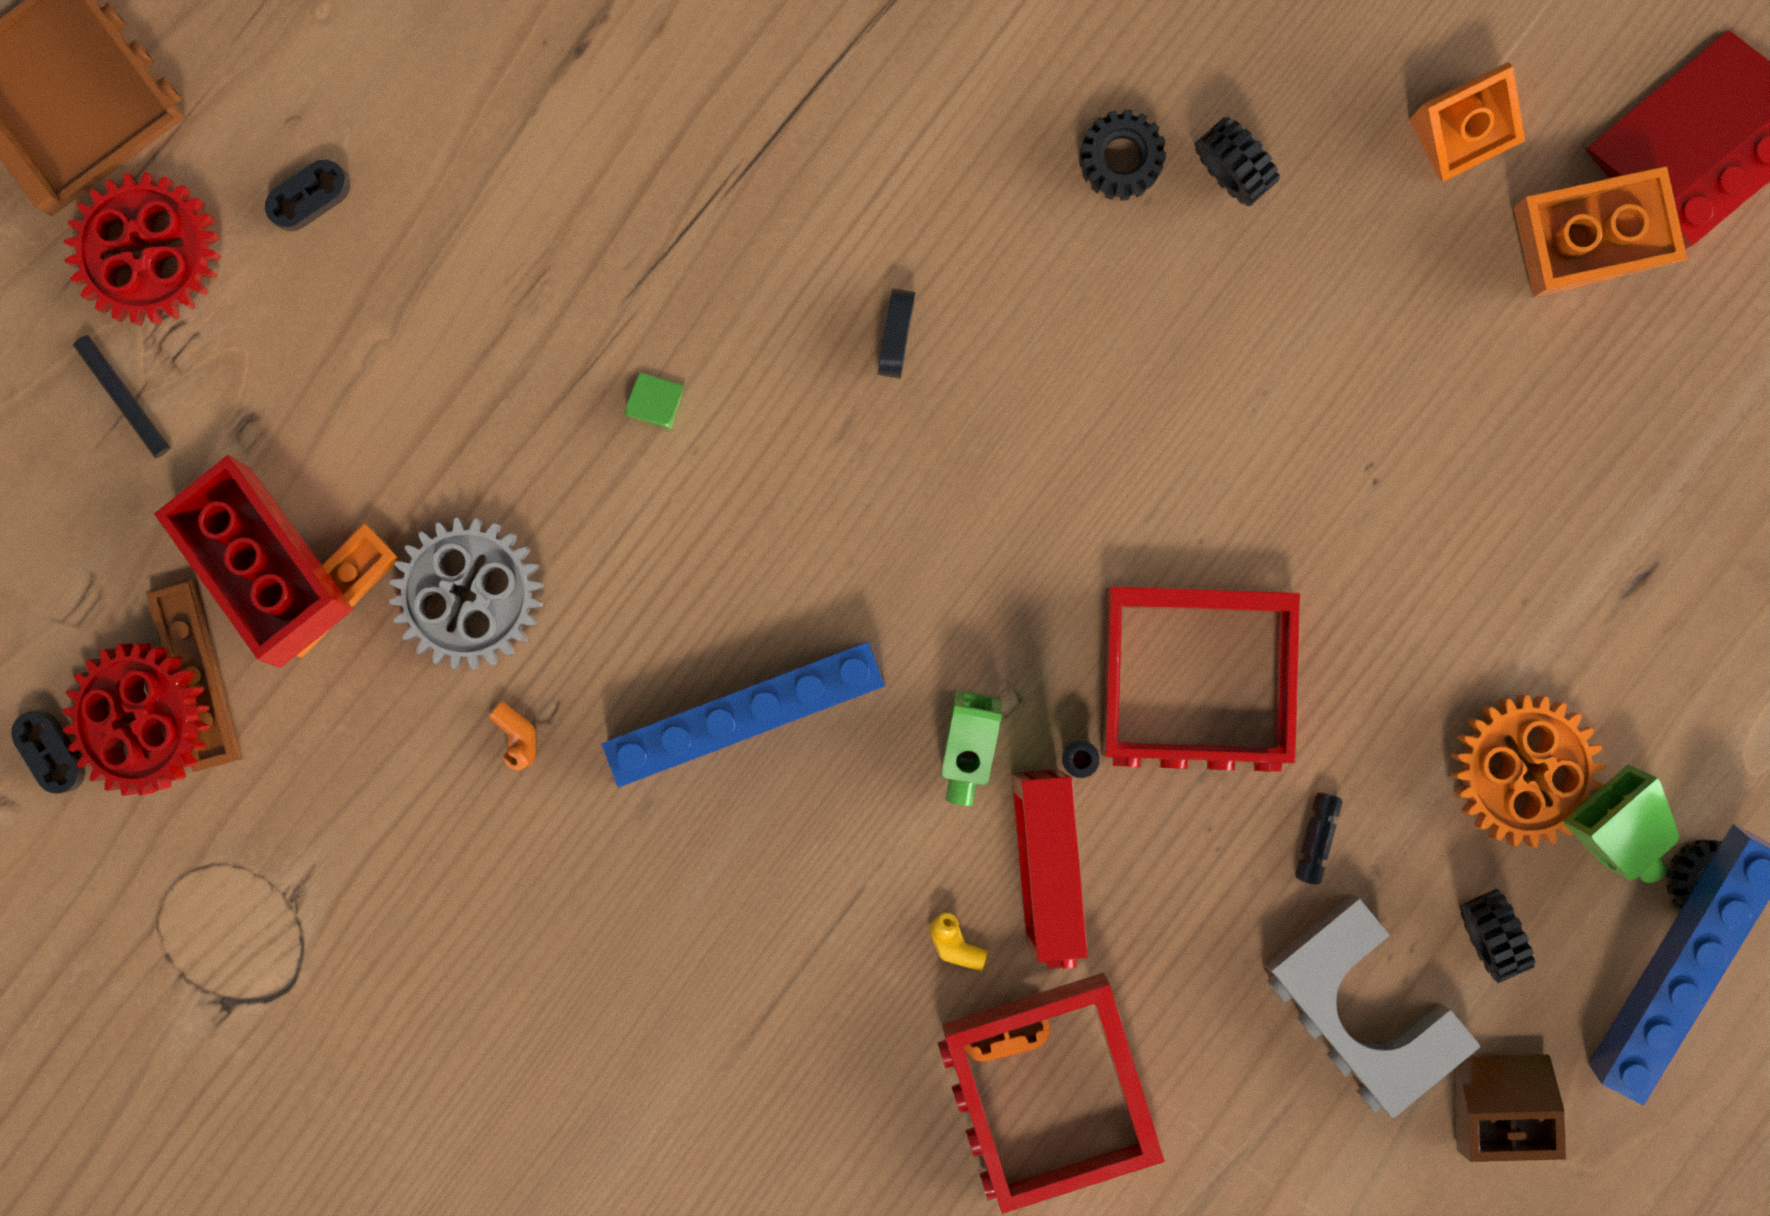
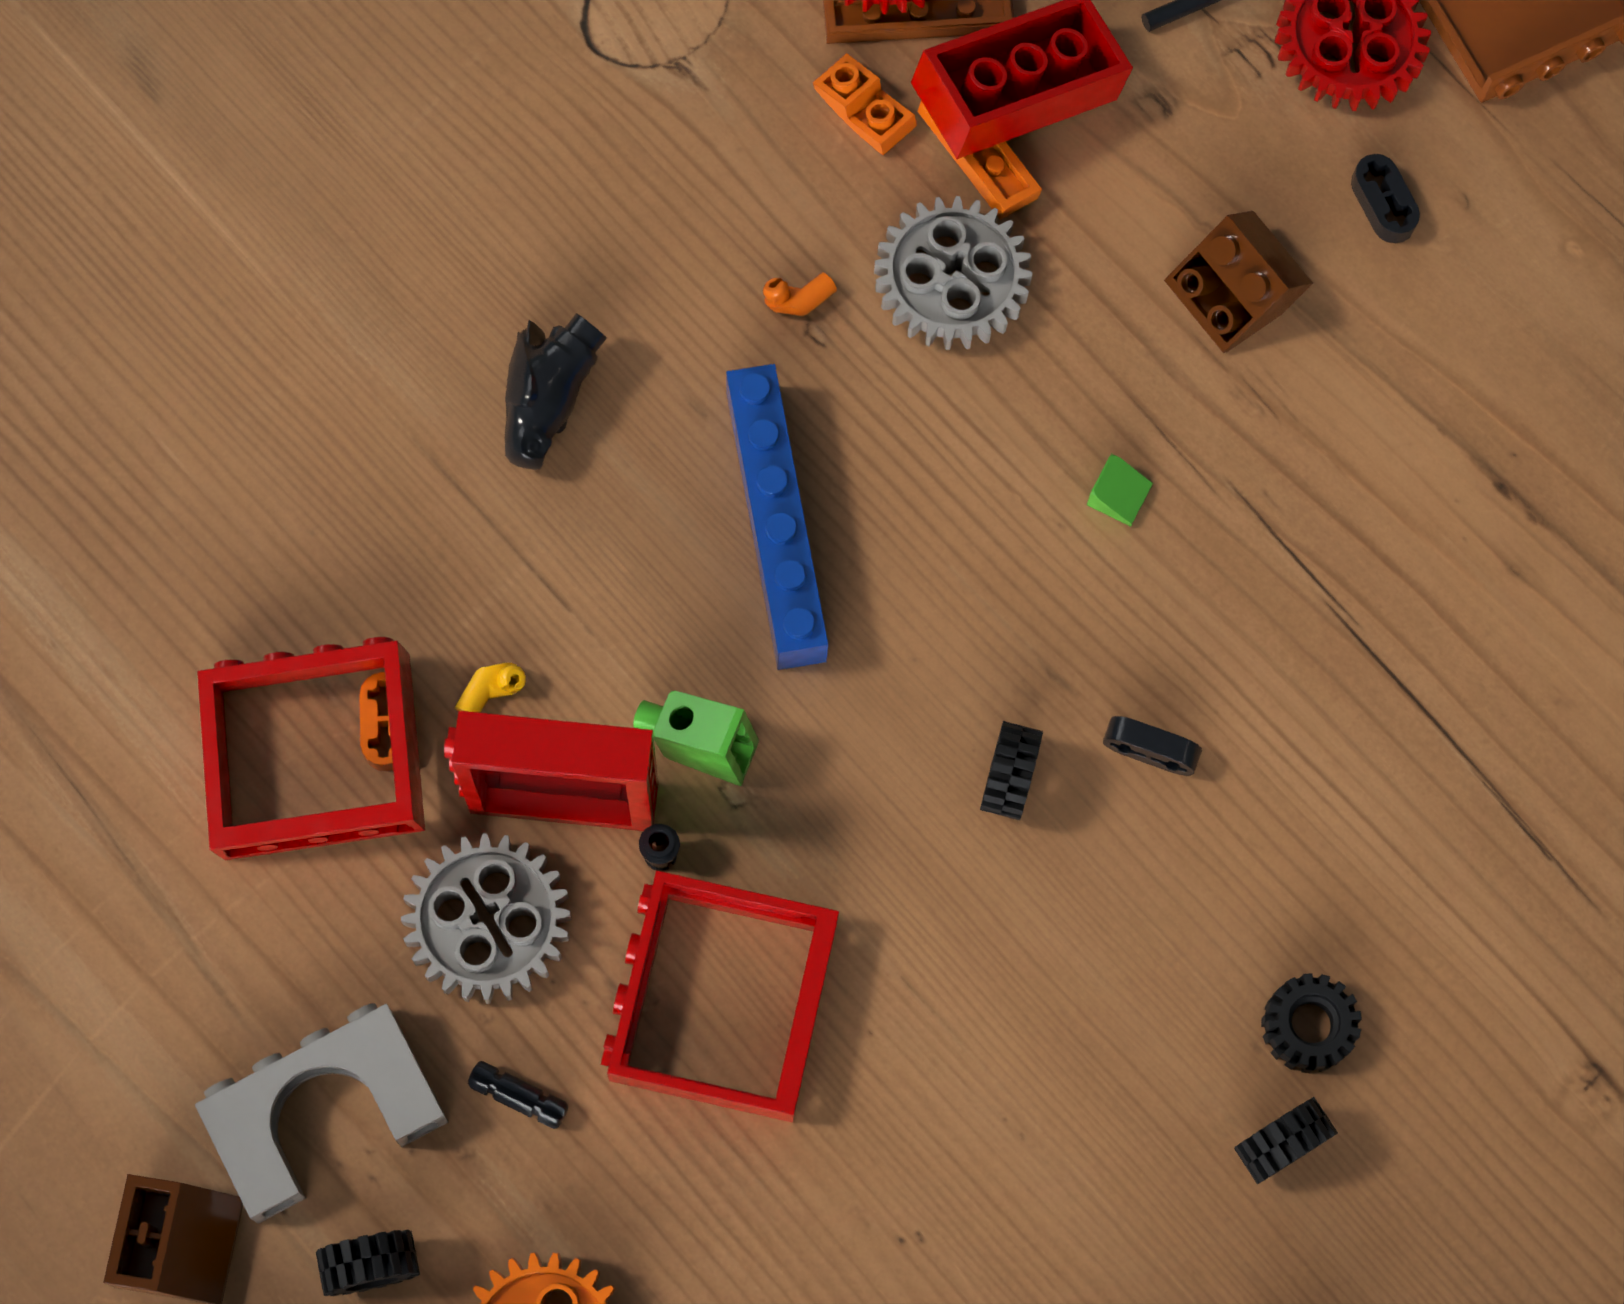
camera: 95 degrees right, 15 degrees down
(302, 710) = (863, 105): none -> orange slope
(422, 322) = (1238, 280): none -> reddish brown slope
(658, 956) = (545, 386): none -> black animal
(950, 455) = (1011, 770): none -> black tyre
(1200, 931) = (446, 941): none -> light grey gear

